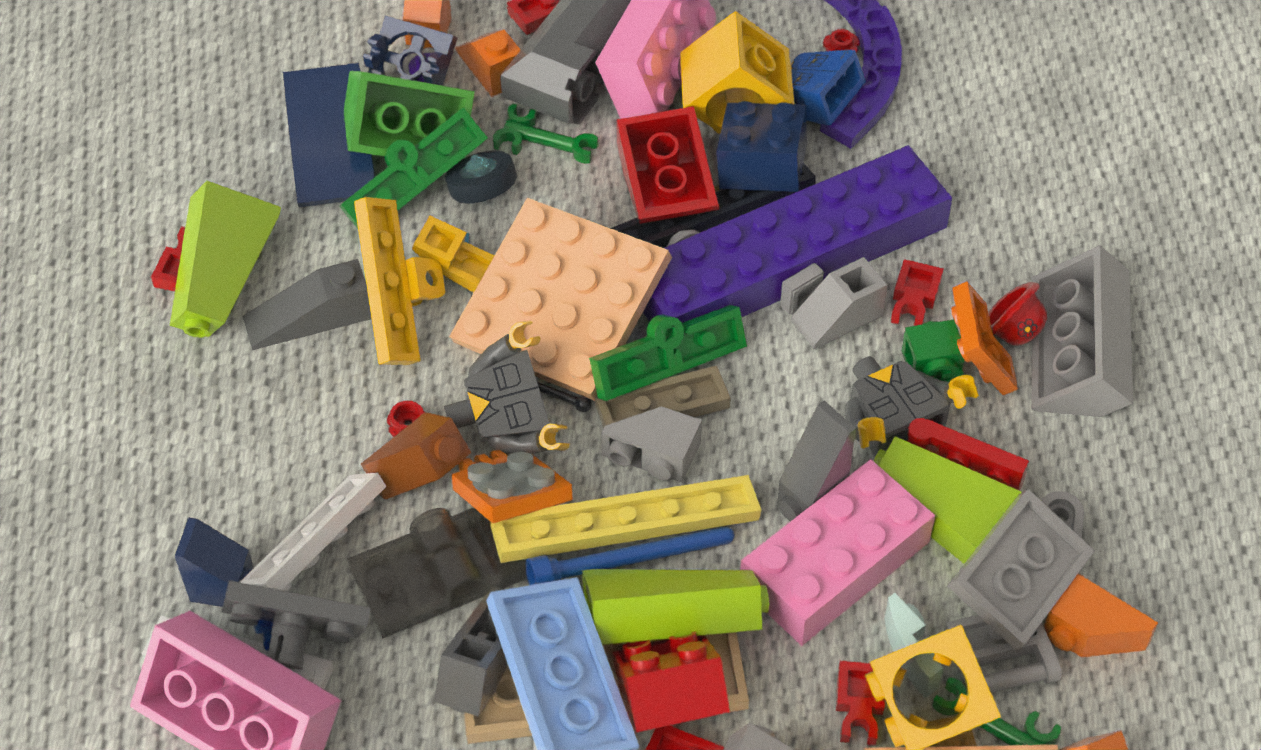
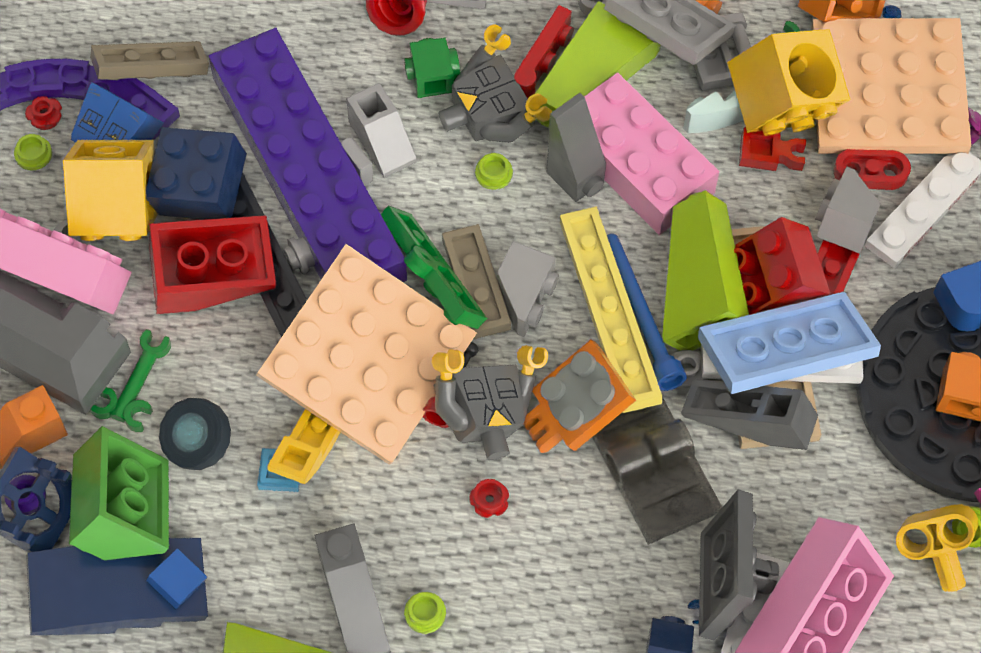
camera: 90 degrees left, 10 degrees up
(287, 370) = (425, 612): none -> lime plate
(322, 526) = (631, 566): white plate -> none
(327, 168) = (176, 578): none -> blue tile
(392, 281) = (343, 497): yellow plate -> none
(417, 166) = (188, 494): green hinge -> none
(418, 454) = (539, 478): dark orange slope -> none
(796, 38) = (32, 152): none -> lime plate
(799, 414) = (493, 171): none -> lime plate
(905, 105) = (149, 60): none -> dark tan plate
(915, 290) = (357, 73): red plate -> none
(978, 342) = (412, 26): orange plate -> none

